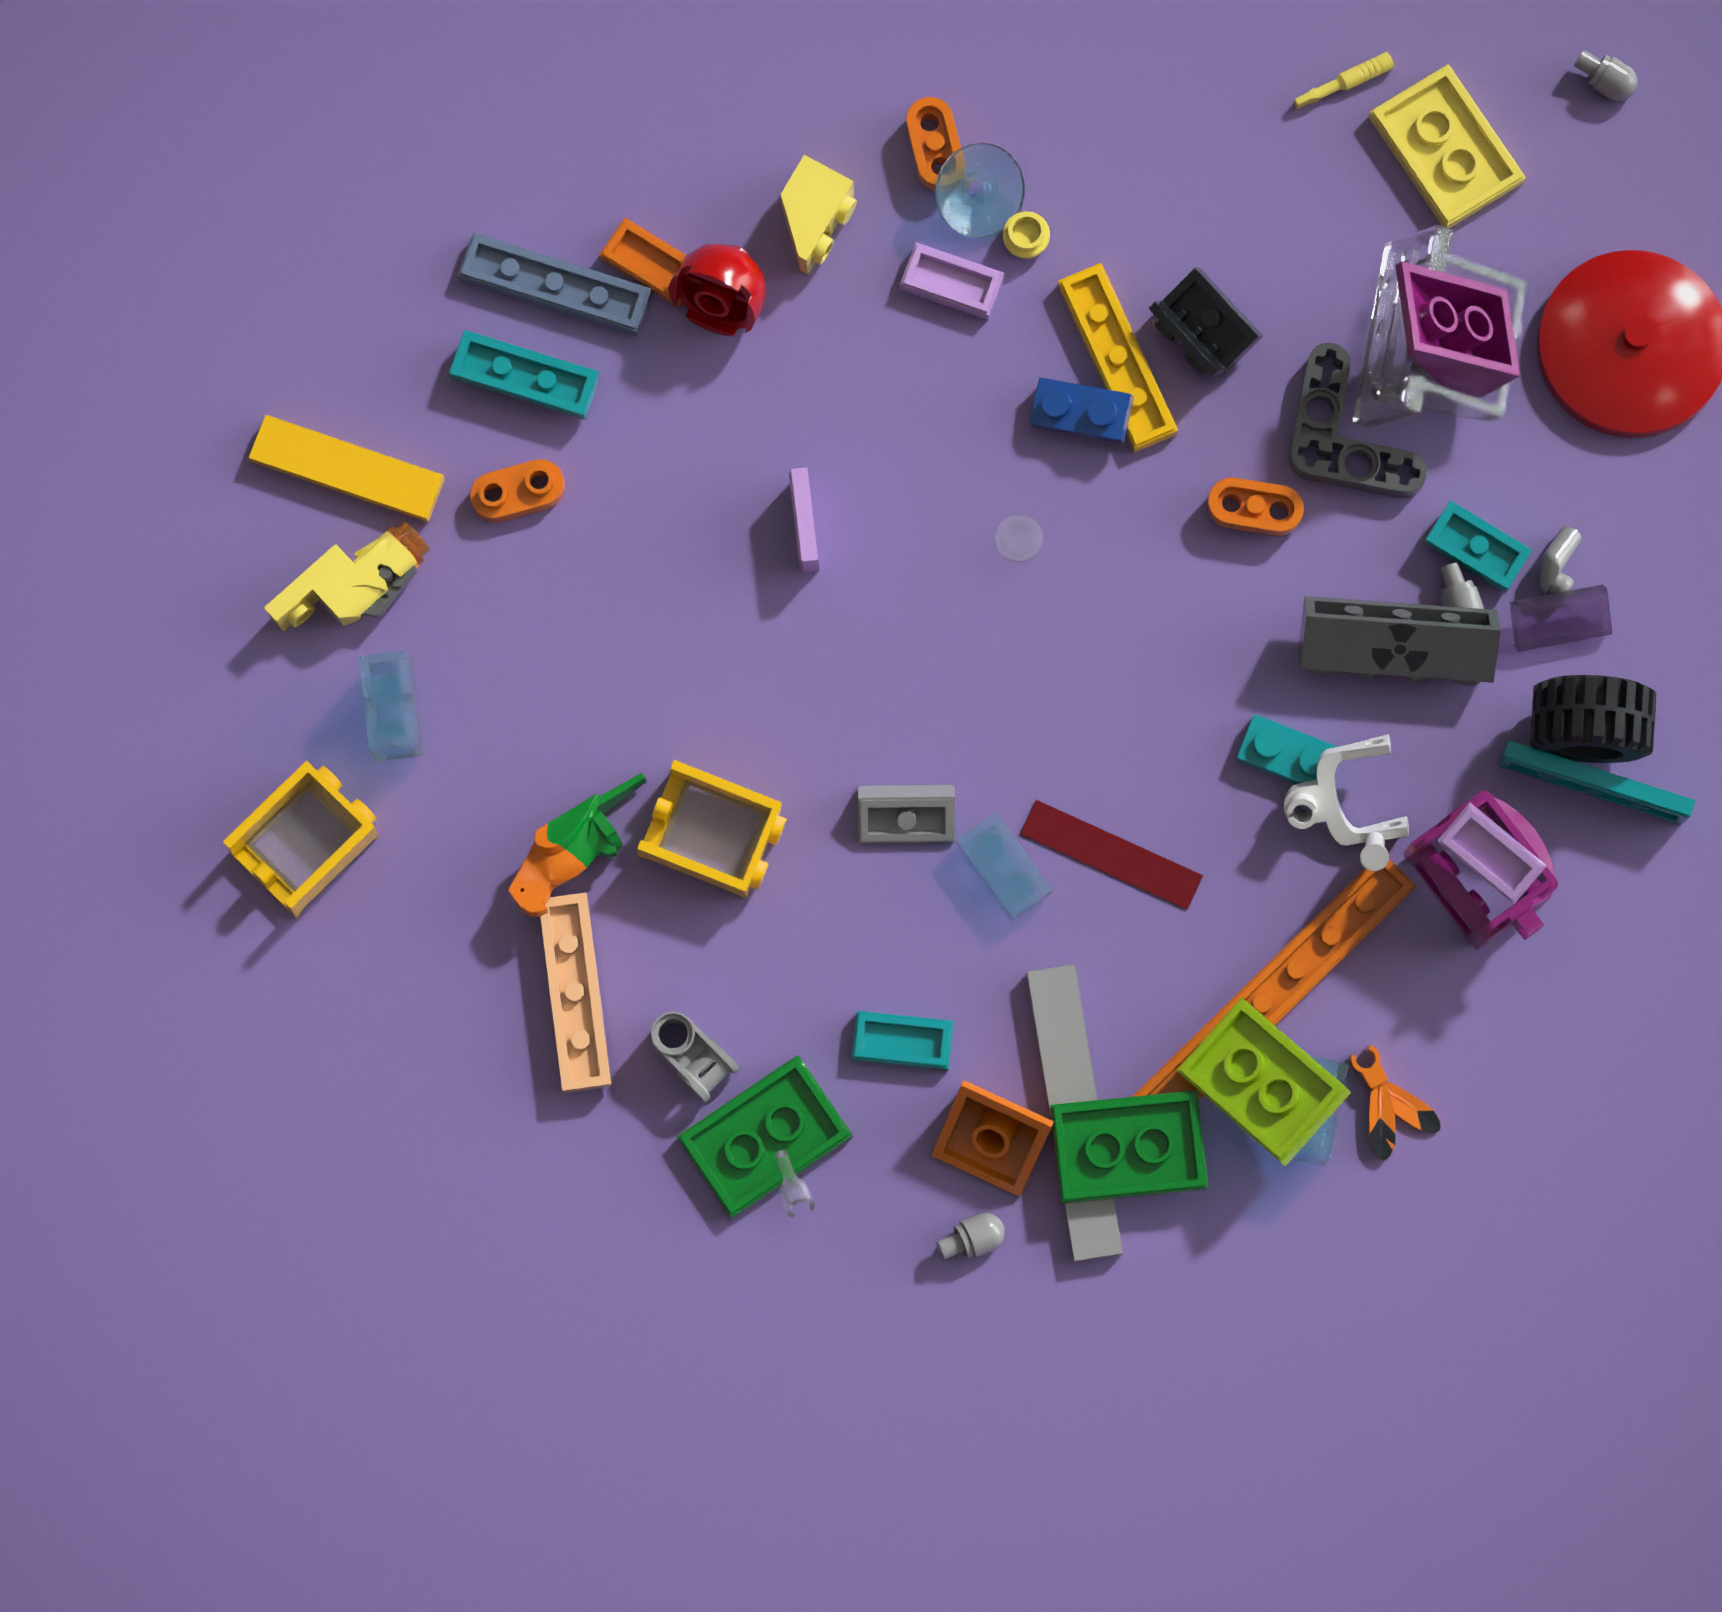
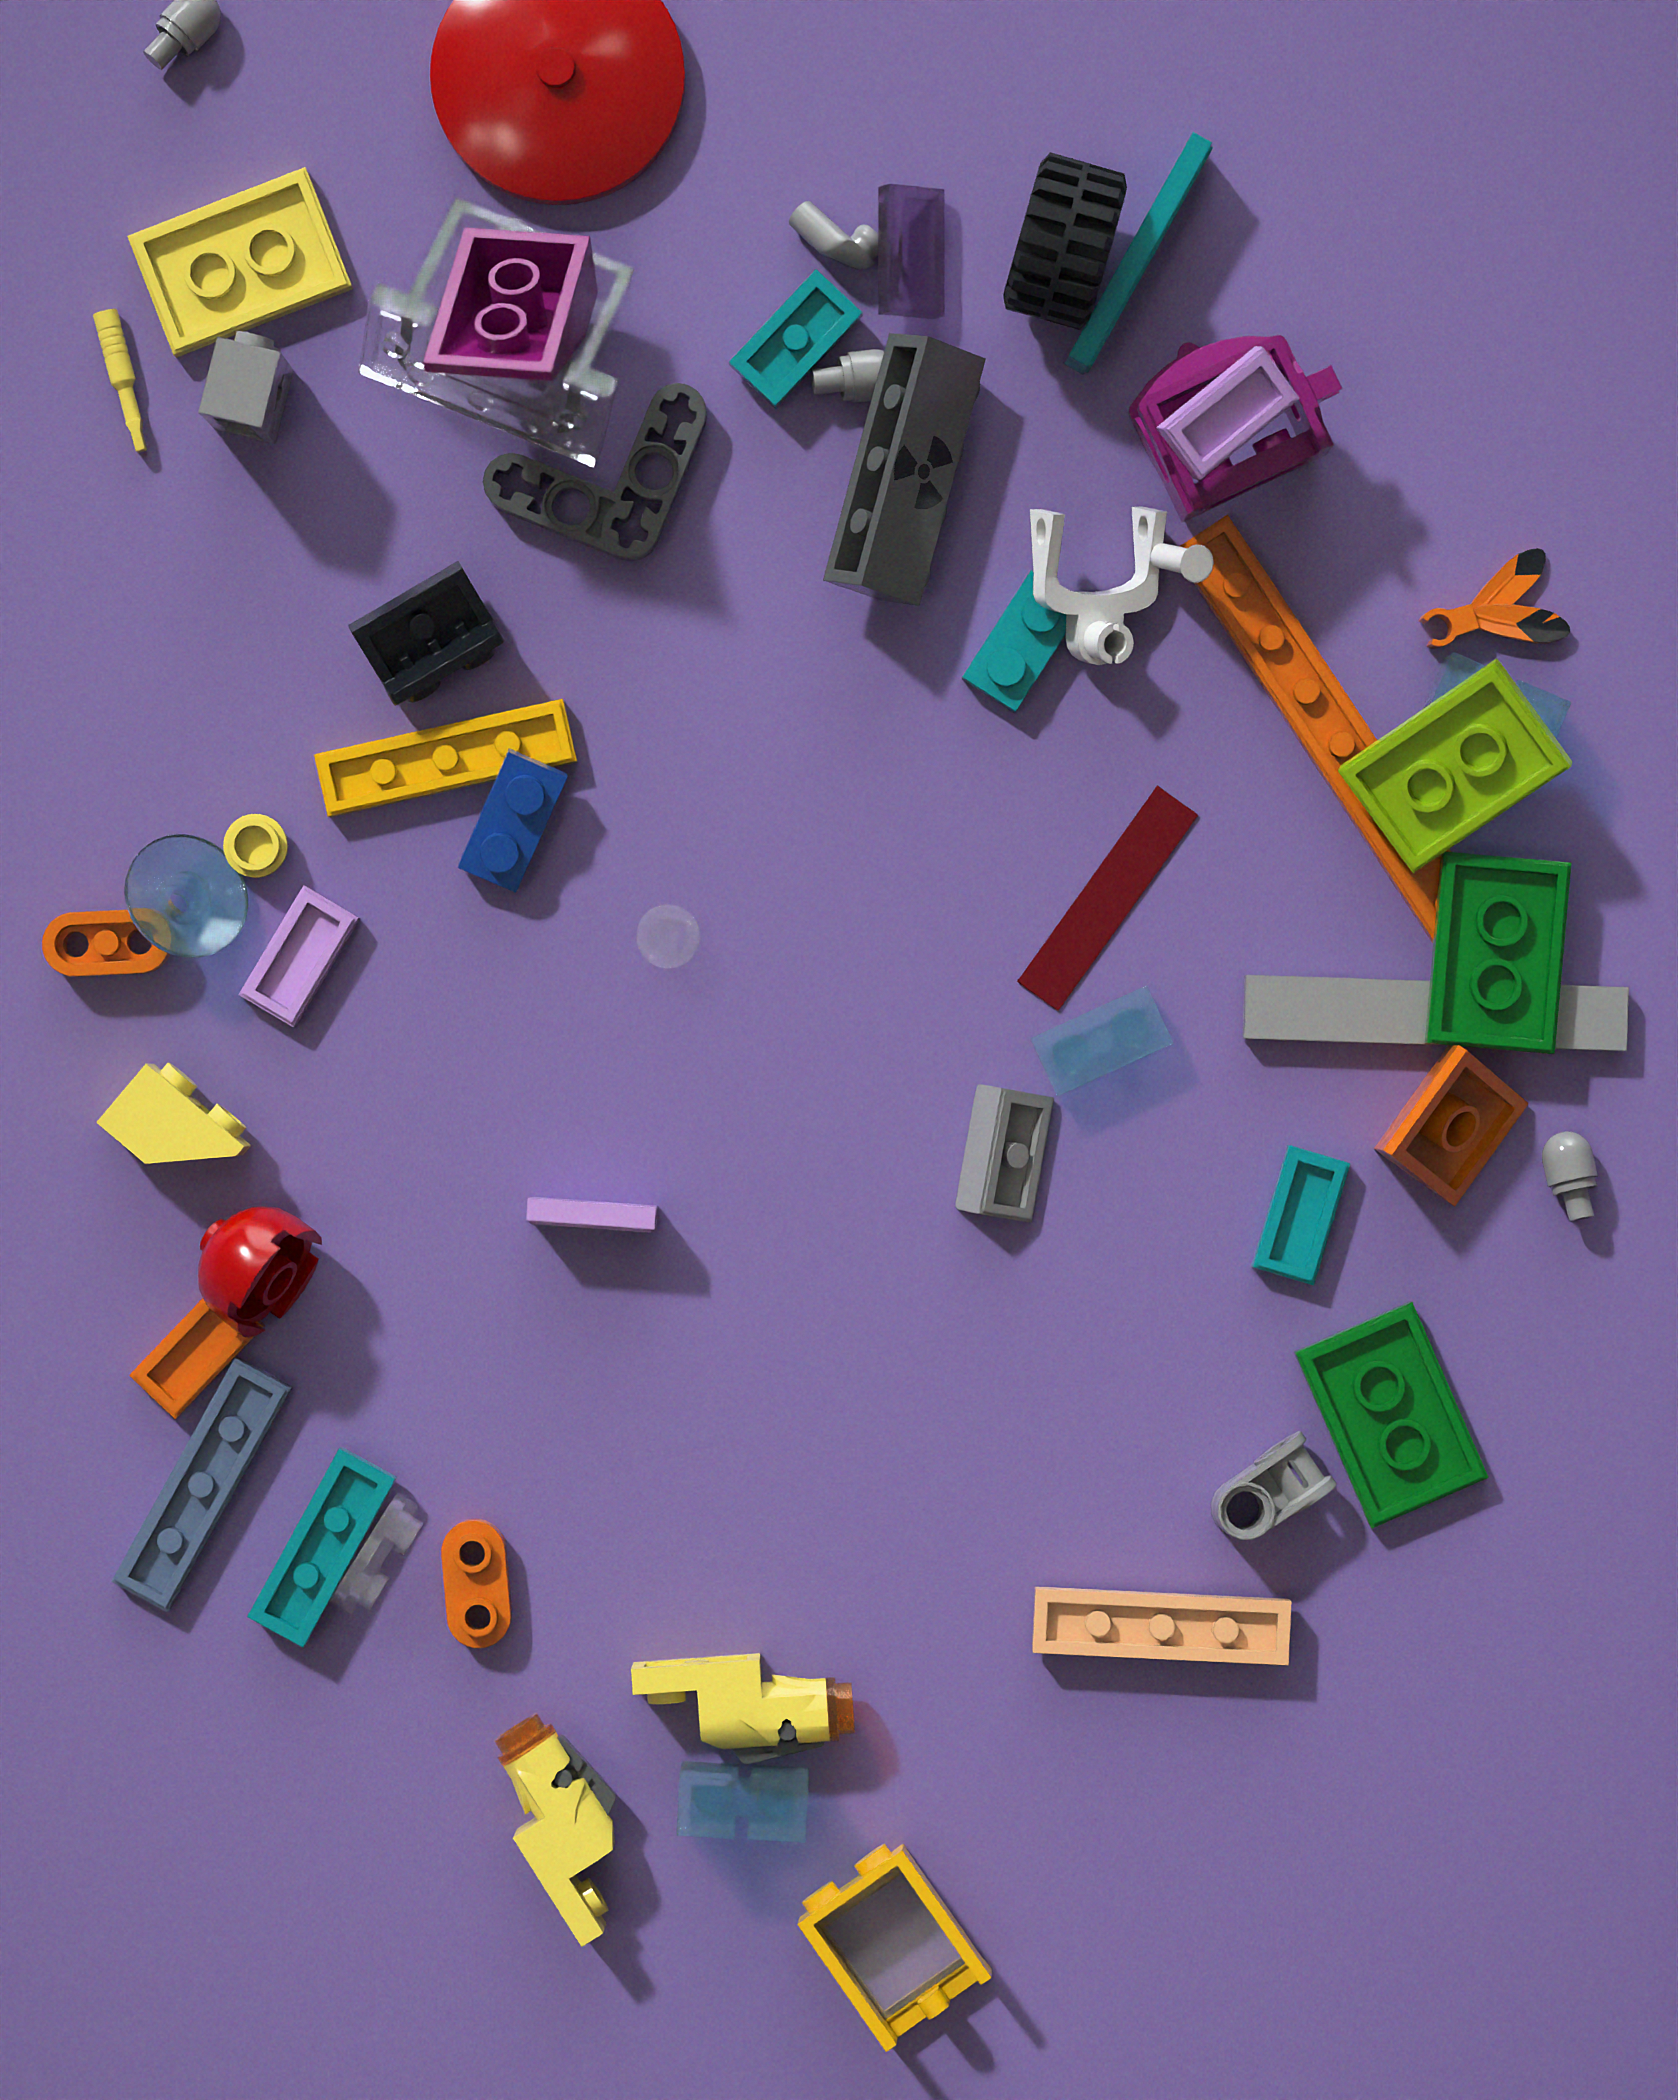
camera: 80 degrees left, 10 degrees up
(346, 468) = (403, 1803): yellow tile -> none
(456, 702) = (748, 1714): none -> light yellow plate
(544, 420) = (393, 1532): none -> clear plate
(568, 847) = (975, 1603): animal -> none
(712, 830) = (985, 1410): window -> none
(793, 1189) = (1469, 1391): clear hand -> none
(1255, 502) = (685, 619): orange plate -> none
(1357, 160) = (246, 387): none -> light grey brick

